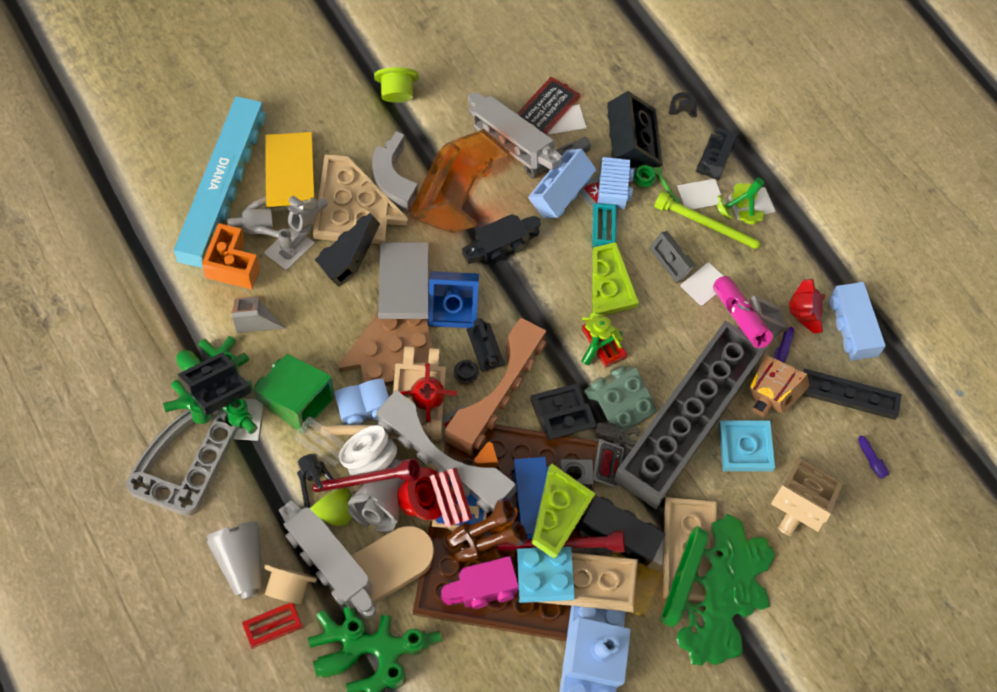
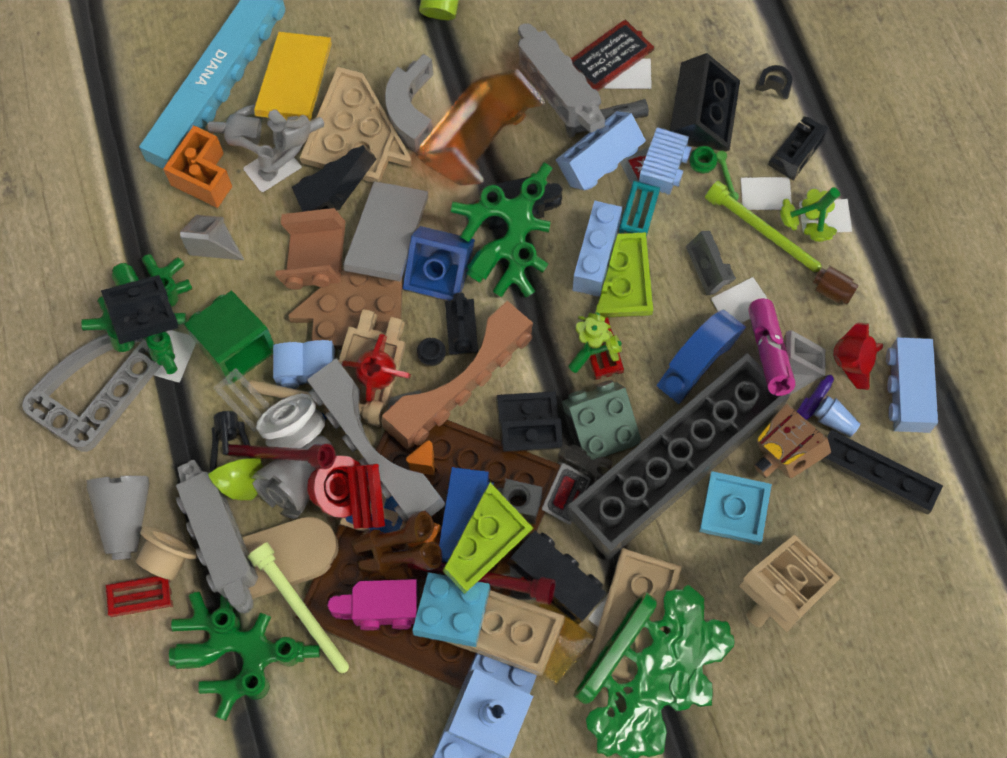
camera: 20 degrees right, 5 degrees up
(345, 306) = (313, 248): none -> nougat panel
(377, 569) = (264, 559): none -> yellowish green piece
(515, 251) = (520, 221): none -> green plant
(580, 262) = (597, 248): none -> light blue brick
(685, 331) = (698, 354): none -> blue arch
(776, 255) = (835, 285): none -> reddish brown brick
(803, 357) = (836, 416): none -> light blue cone
(875, 463) = (888, 563): dark purple piece -> none

